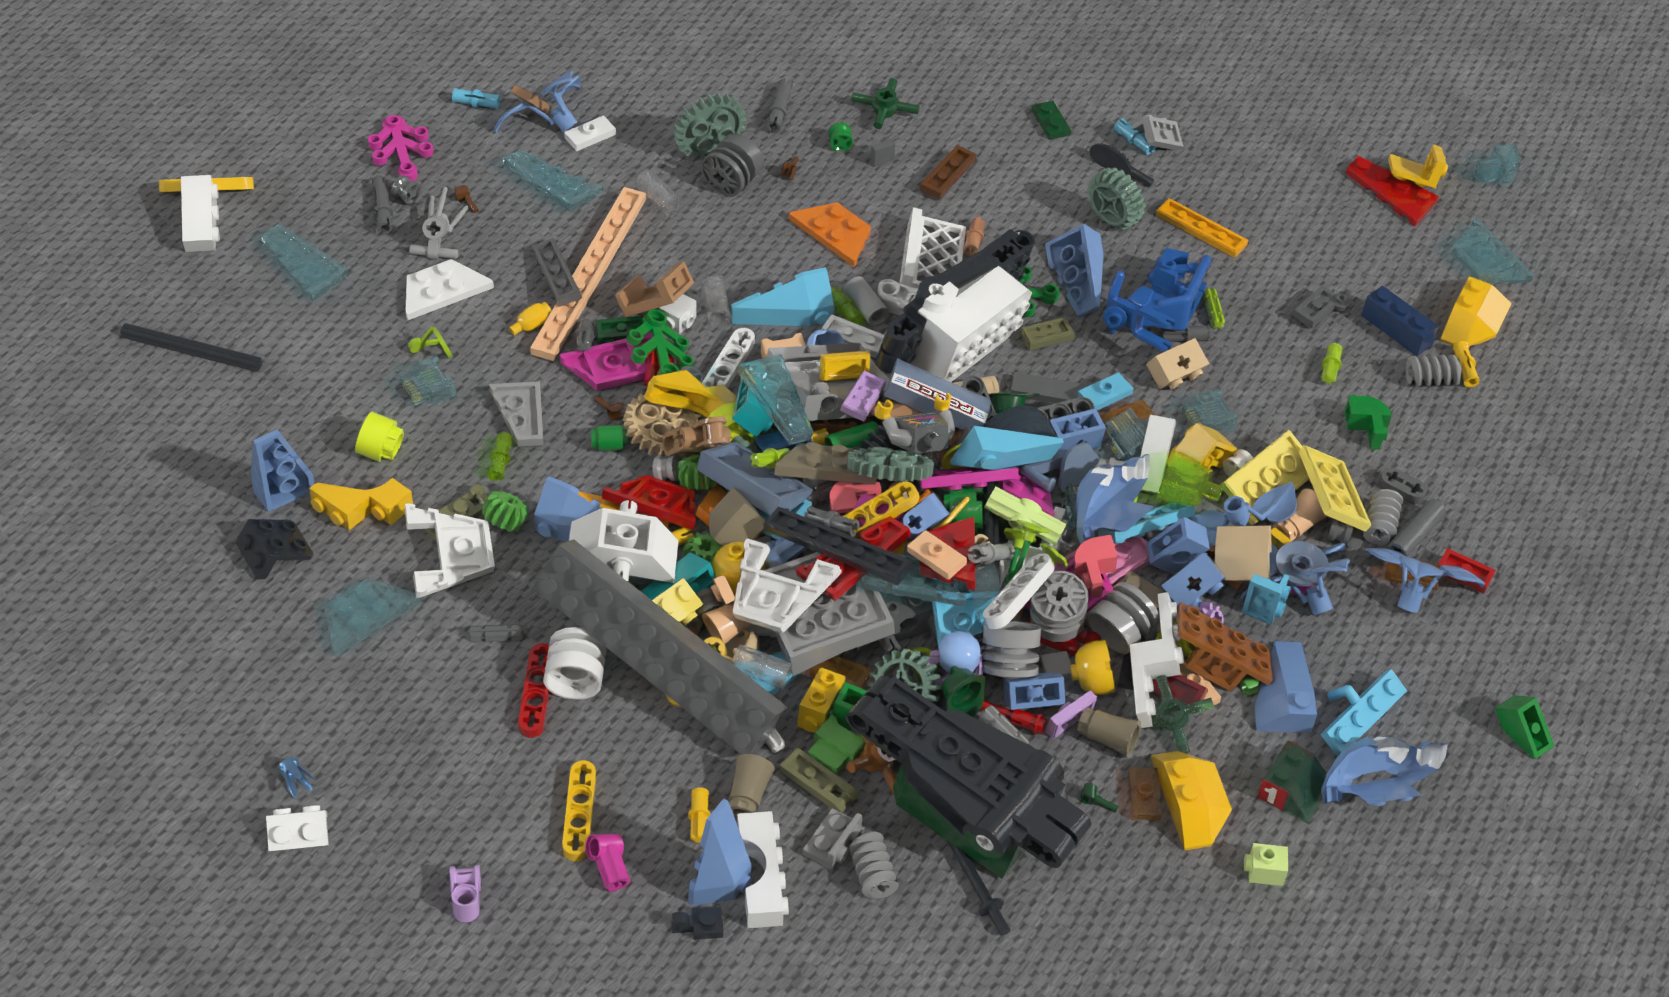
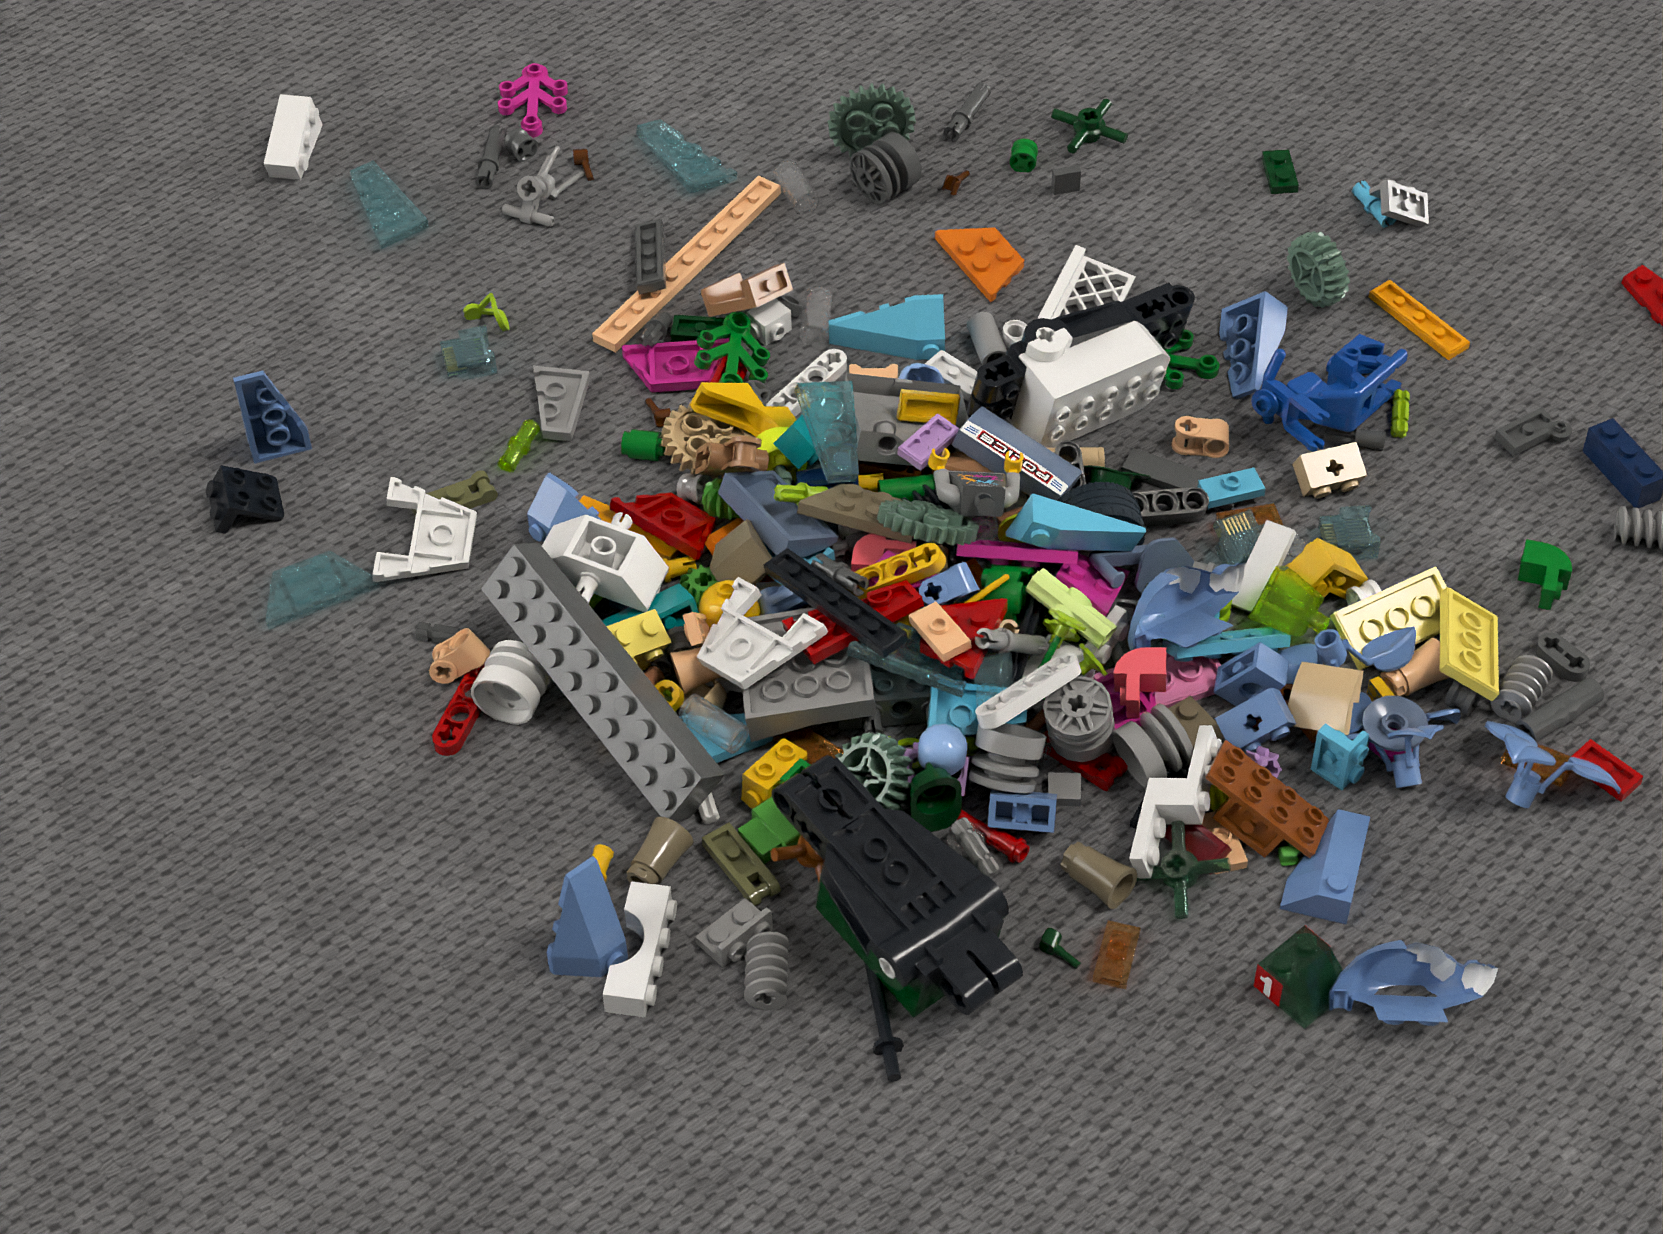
camera: 20 degrees right, 0 degrees up
(191, 347) = (237, 277): black axle -> none
(235, 183) = (325, 110): yellow beam -> none
(292, 769) = (176, 740): flat silver piece -> none
(297, 829) = (156, 804): white bracket -> none
(351, 505) = (340, 471): yellow arch -> none
(379, 438) = (393, 403): neon yellow piece -> none
(442, 286) = (523, 254): white wing -> none
(465, 889) = (309, 907): lavender piece -> none
(476, 98) = (633, 58): medium azure pin -> none
(505, 510) = (499, 504): bright green gear -> none
(520, 647) = (457, 656): none -> light nougat piece
(531, 98) = (688, 66): medium nougat tile -> none
(531, 318) = (606, 302): yellow plant -> none
(561, 115) = (717, 87): medium blue plant -> none
(579, 810) = (469, 845): yellow beam -> none
(590, 133) = (745, 112): white plate -> none
(608, 852) = (475, 898): dark pink piece -> none
(703, 922) = (555, 996): black plate -> none
(845, 306) = (962, 343): clear neon green pin -> none
(948, 172) = (1135, 212): reddish brown plate -> none
(974, 236) = (1143, 283): nougat axle -> none
(1047, 333) = (1195, 406): olive plate -> none
(1068, 352) = (1204, 437): none -> light nougat piece
(1070, 714) = (1055, 844): lavender plate -> none
(1079, 428) = (1185, 522): medium blue brick -> none
(1093, 668) = (1102, 799): yellow cylinder -> none
(1110, 158) = (1340, 230): black piece -> none
(1193, 797) = (1173, 970): yellow wedge -> none
(1267, 864) = (1233, 1065): yellowish green brick -> none
(1331, 363) = (1523, 499): lime axle -> none
(1363, 710) = (1417, 909): medium azure plate -> none
(1525, 724) = (1616, 966): green slope -> none

